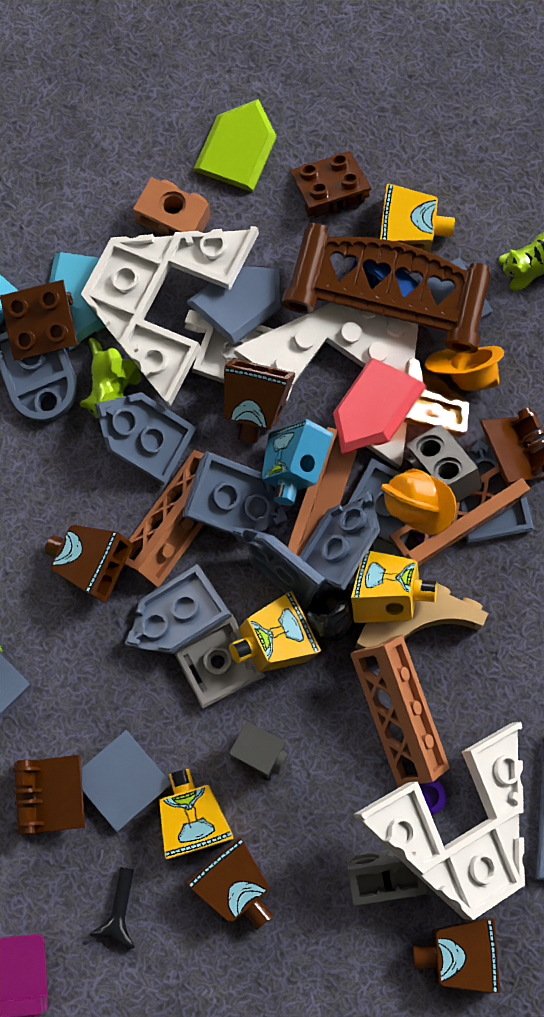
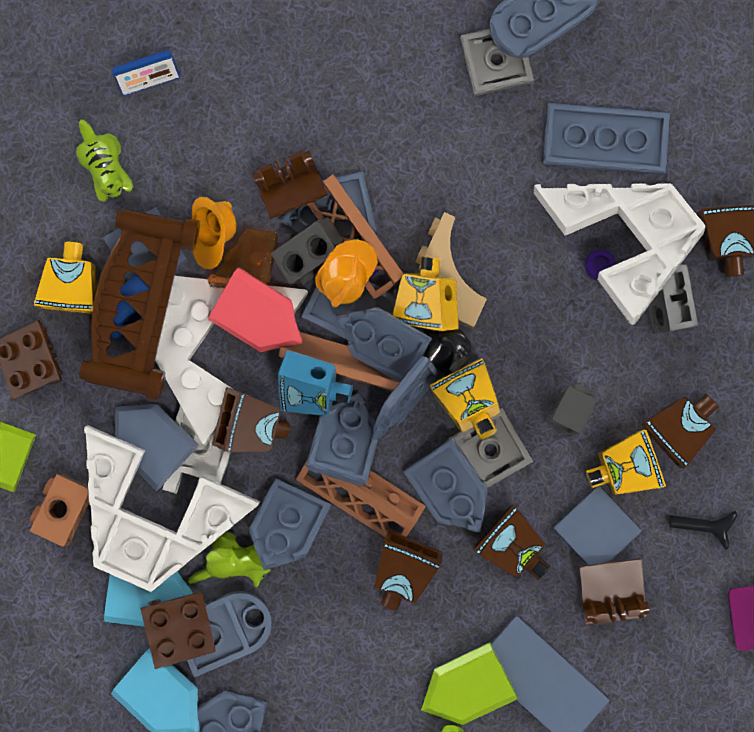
camera: 90 degrees left, 10 degrees up
(108, 681) = (513, 545): none -> reddish brown torso
(407, 711) = (534, 281): nougat fence -> none

